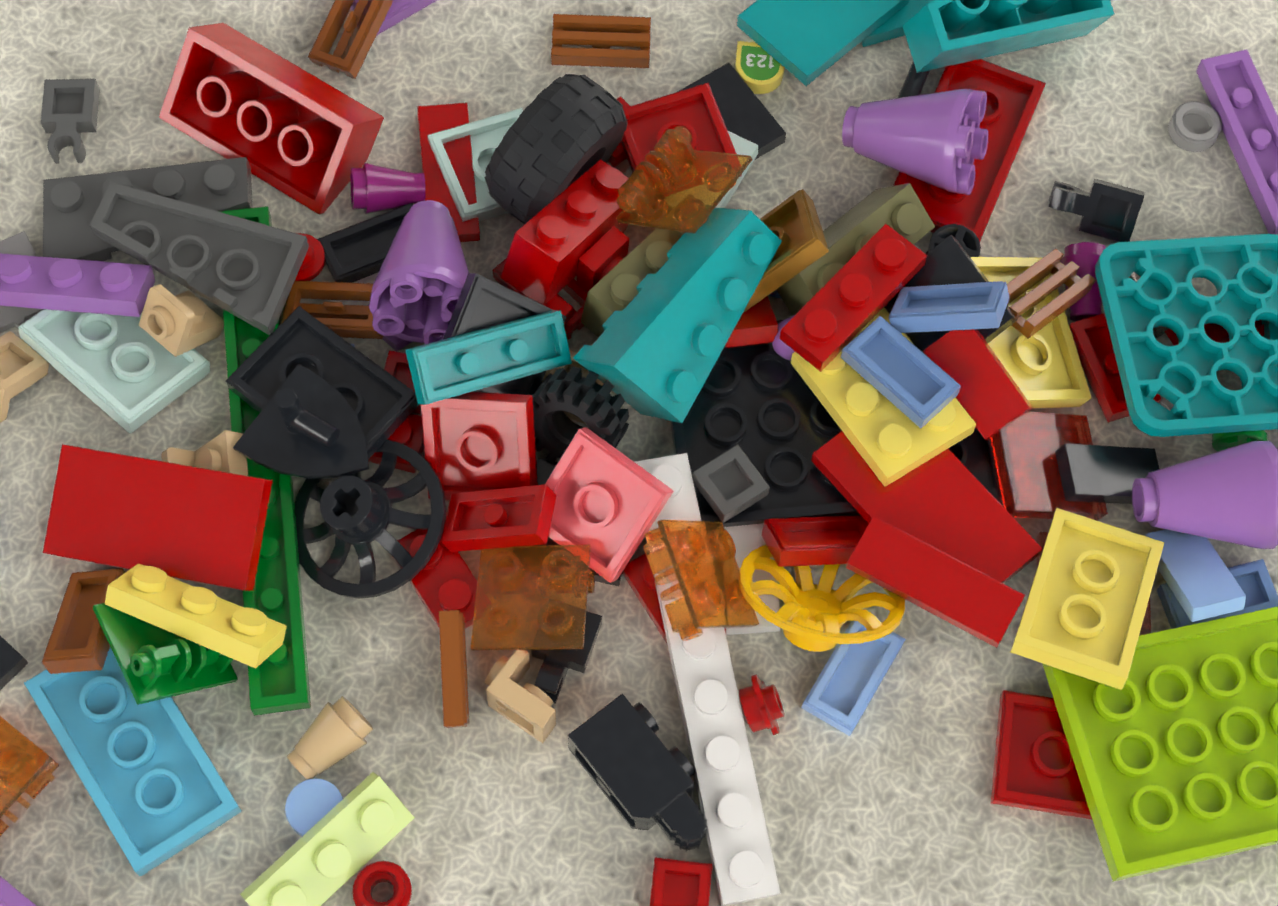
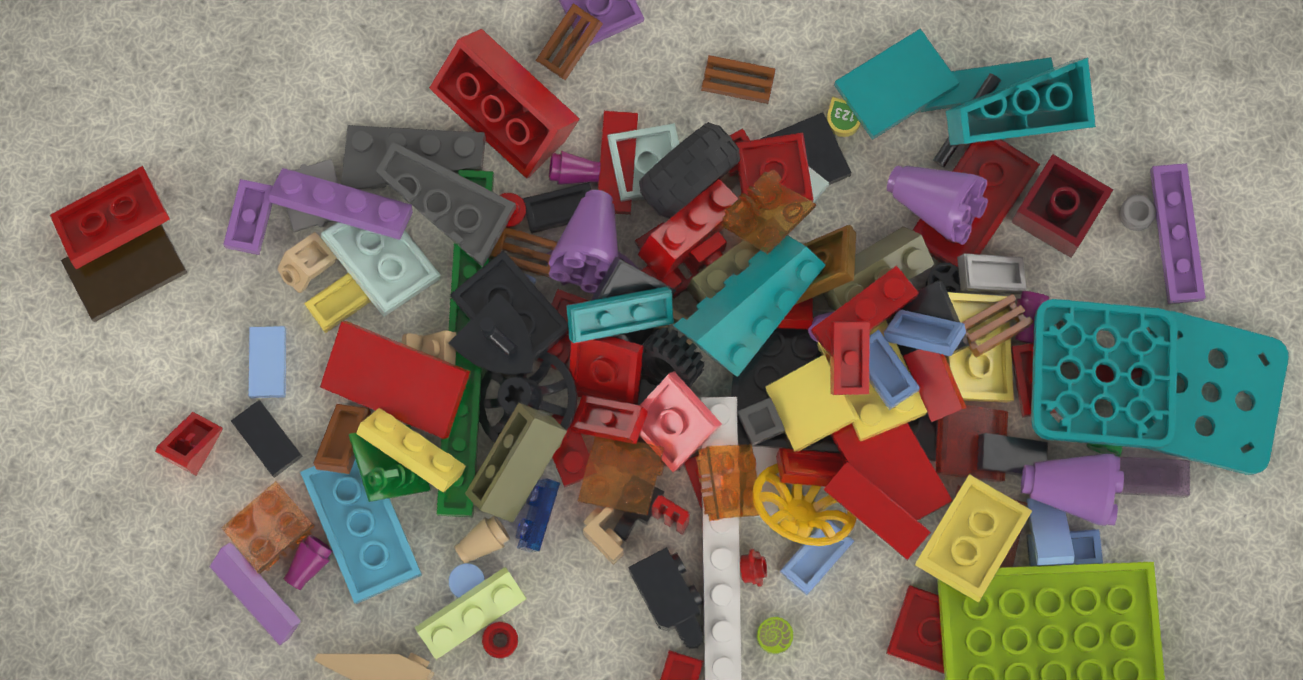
camera: 15 degrees right, 10 degrees up
(52, 822) = (308, 561): none -> magenta cone
(63, 419) = (337, 302): none -> light yellow tile
(68, 111) = (370, 76): dark grey plate -> none
(179, 320) = (425, 244): tan bracket -> none
(364, 606) = (515, 462): none -> olive brick
(407, 706) = (533, 528): none -> clear blue plate
(454, 669) = (565, 511): dark orange tile -> none
(616, 648) = (671, 513): none -> red tile
(802, 441) = (807, 405): none -> light yellow tile
(815, 804) = (775, 635): none -> tile
(849, 355) = (850, 357): none -> red plate
(1015, 230) = (991, 273): none -> light grey tile
(1093, 123) = (1062, 205): none -> dark red brick
(1105, 210) = (1056, 267): black plate -> none

